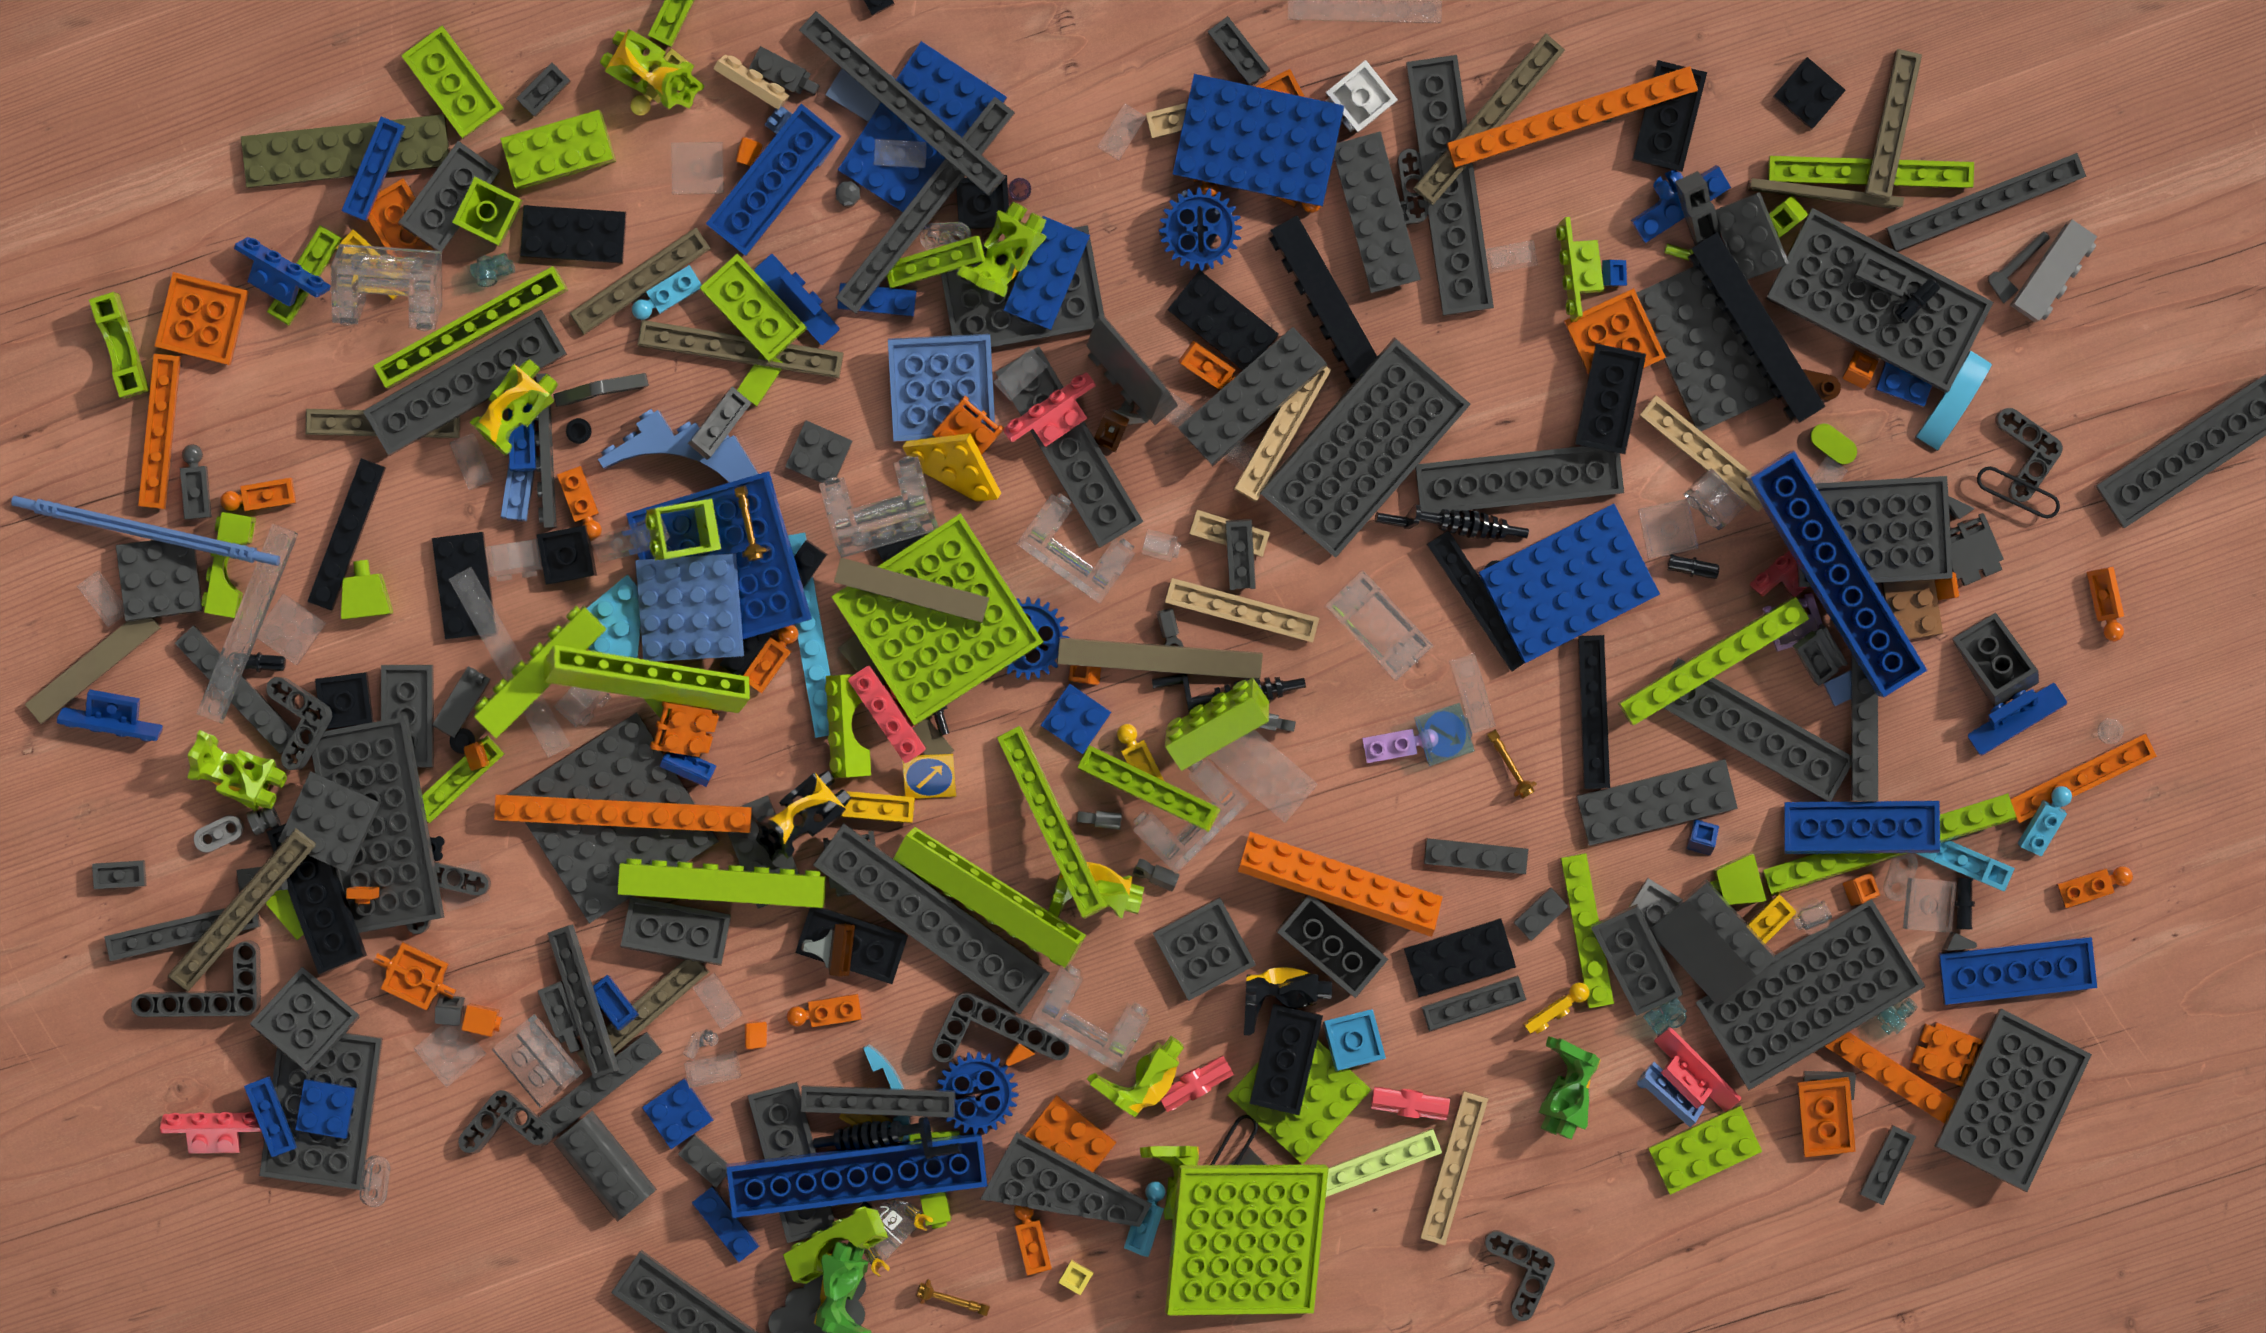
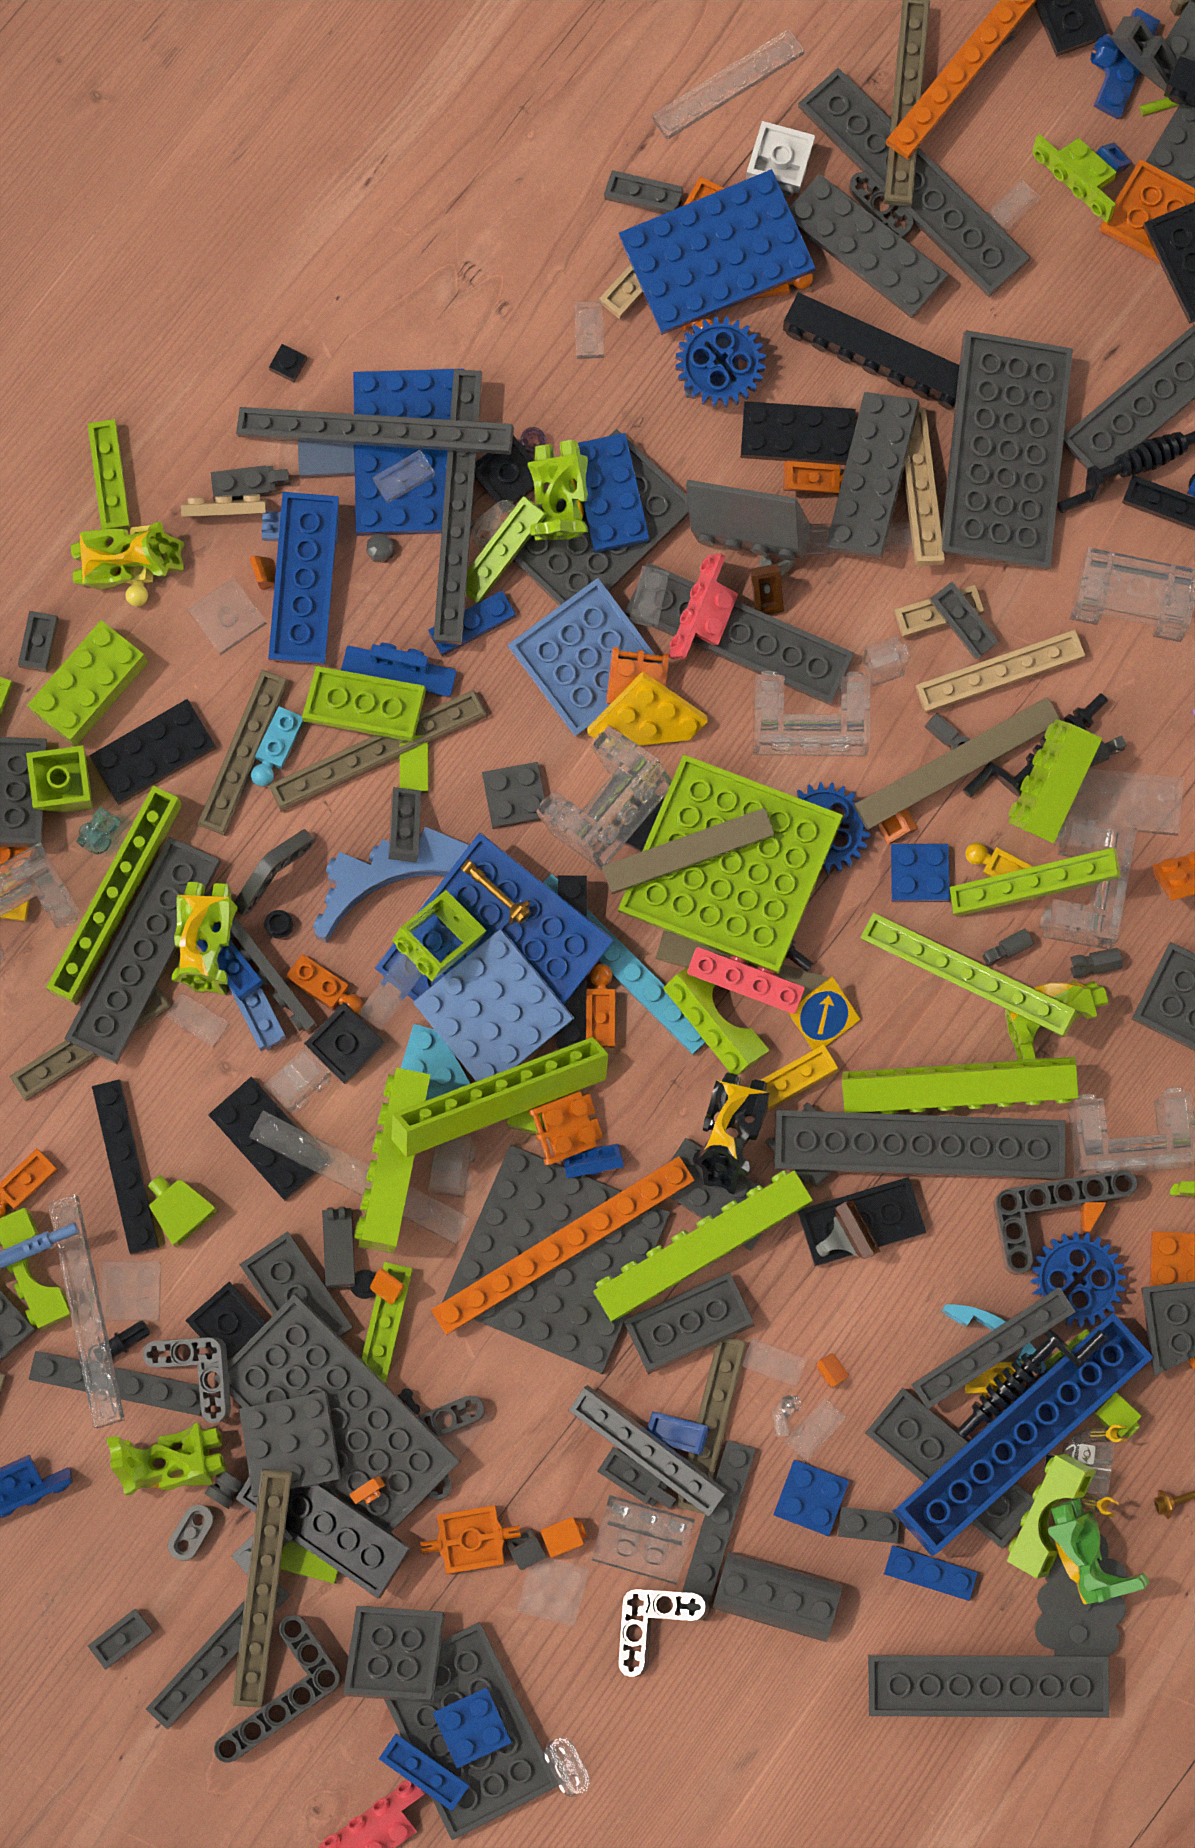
camera: 35 degrees left, 10 degrees down
(826, 1011) = (883, 1301): orange plate -> none

